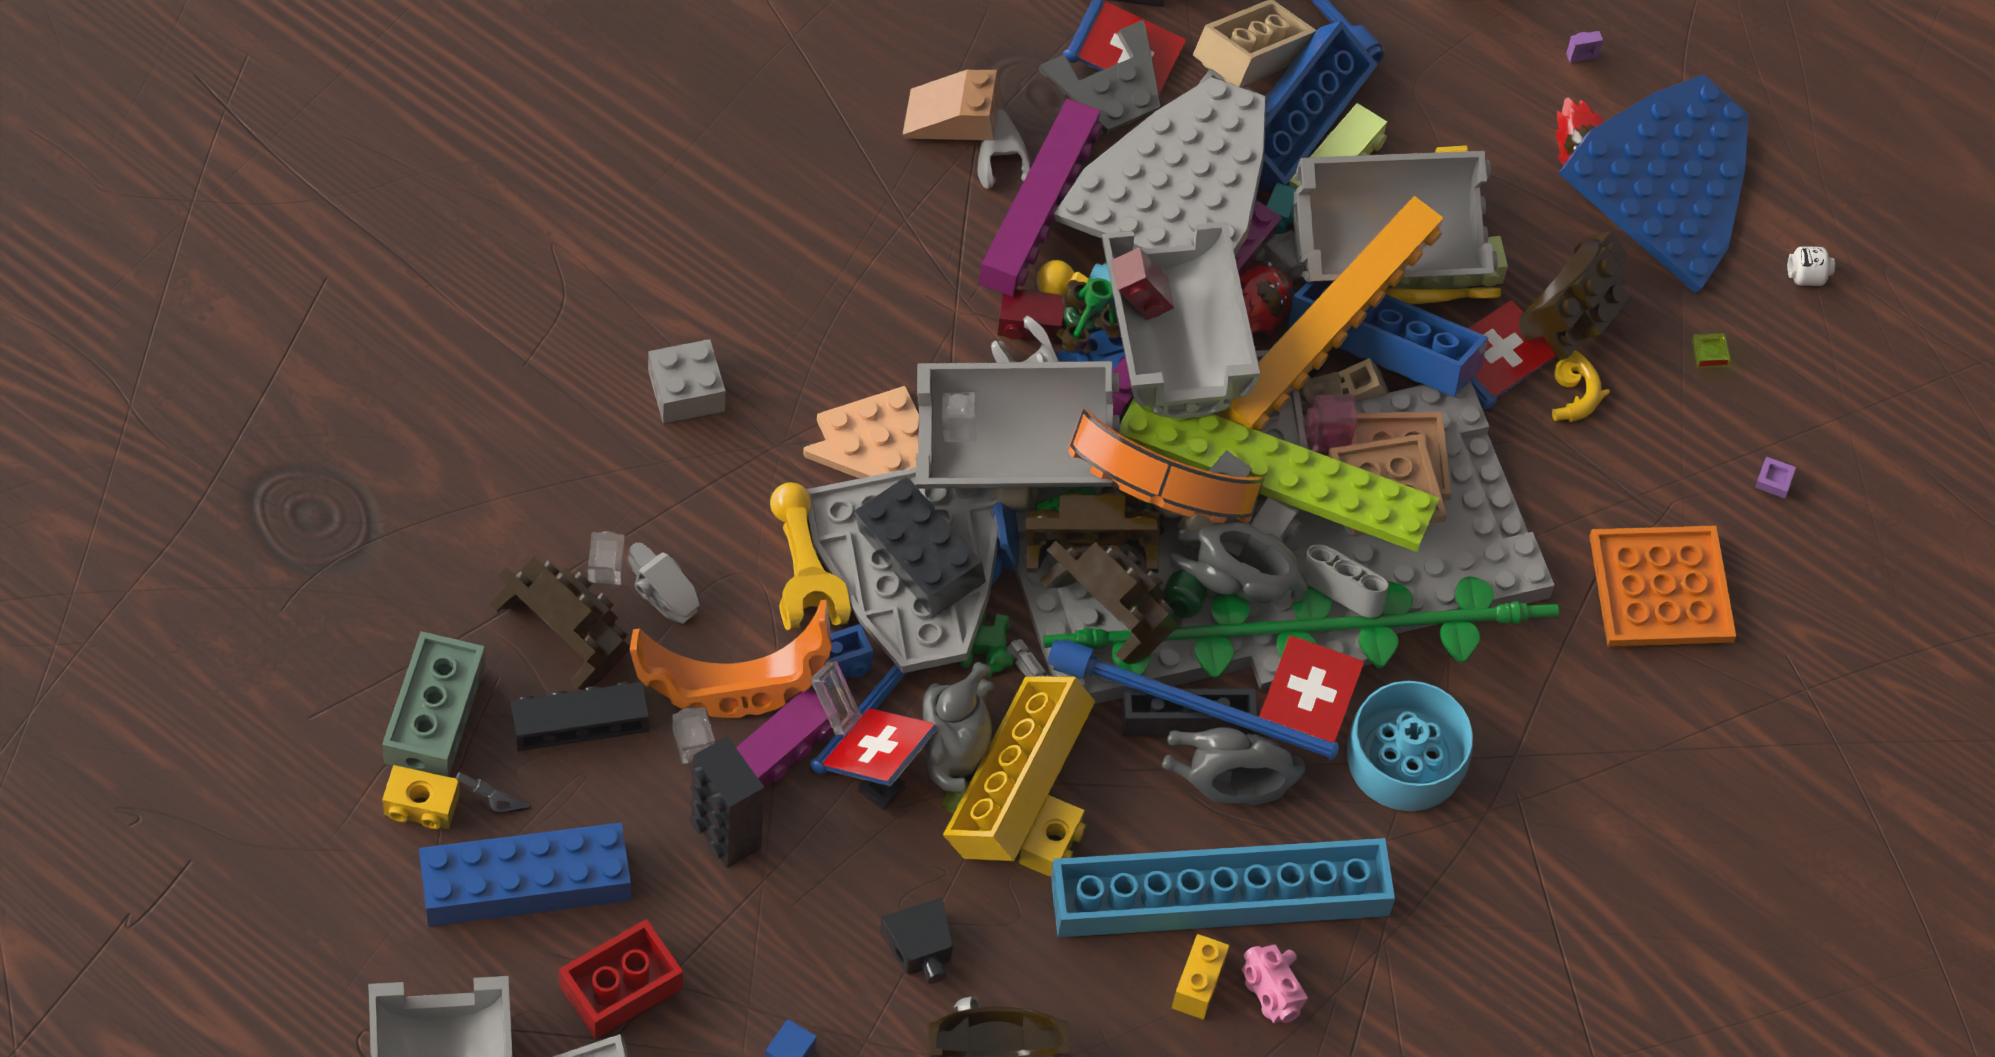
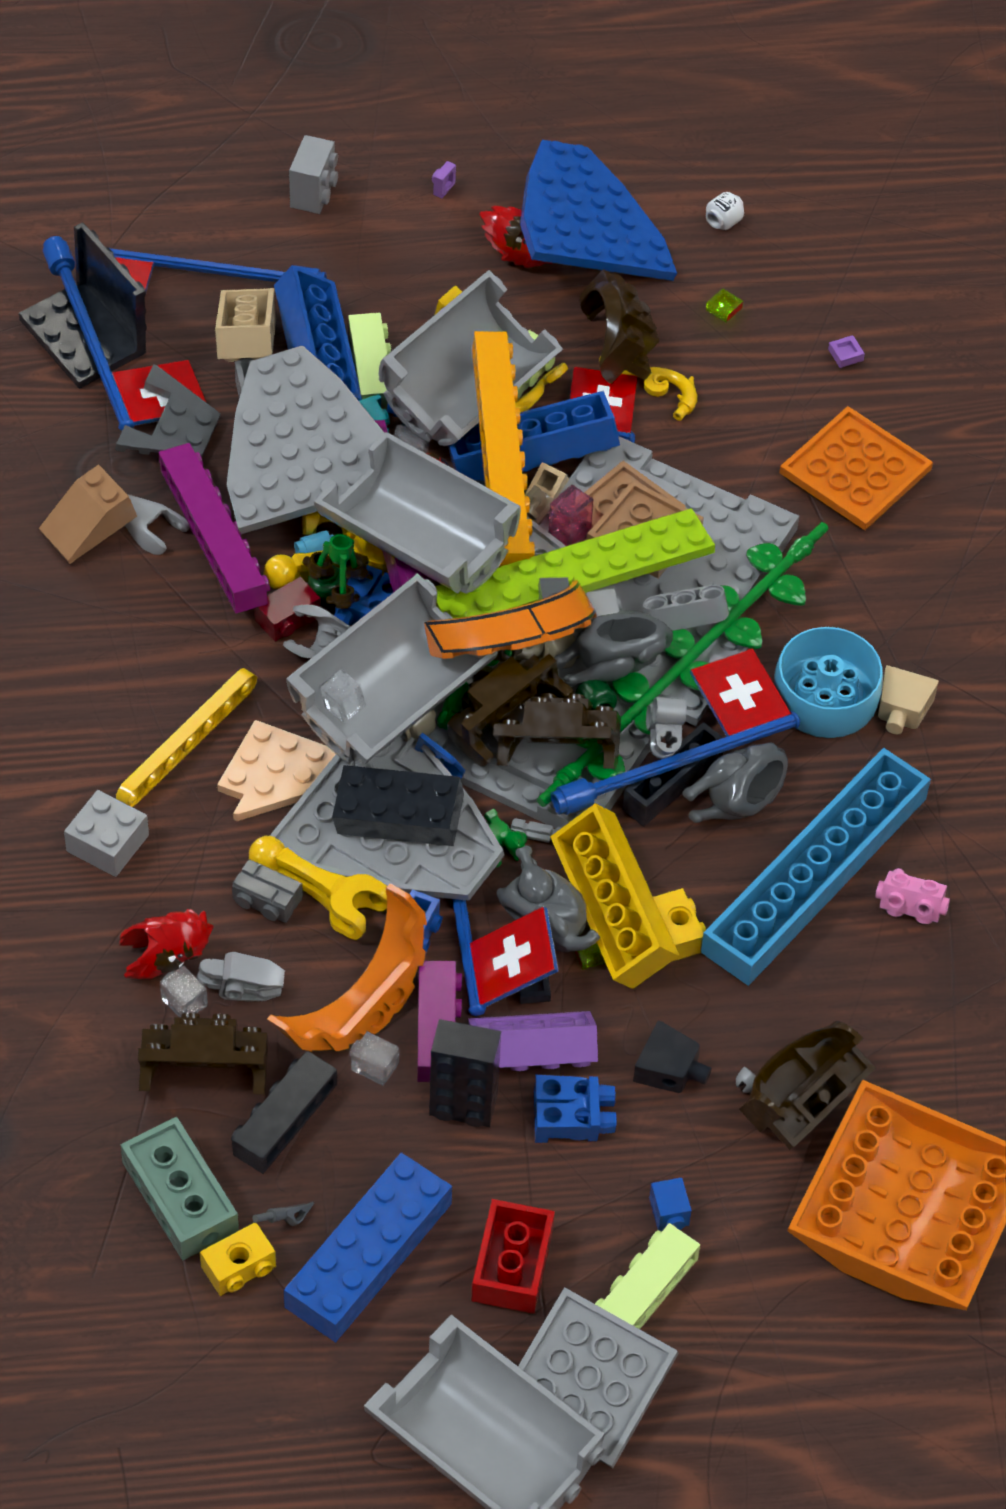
camera: 40 degrees left, 5 degrees down
(630, 506) = (169, 941): none -> red head
(758, 532) = (267, 891): none -> dark grey brick
(799, 907) = (571, 1108): none -> blue hips
(831, 828) = (544, 1039): none -> medium lavender slope
(835, 355) = (186, 737): none -> yellow beam
(836, 698) = (451, 949): clear tile -> none
(1143, 284) = (373, 513): brick -> none
(1200, 976) = (865, 931): yellow brick -> none
(1211, 657) = (665, 721): none -> light grey piece
(1466, 817) = (905, 699): none -> tan torso

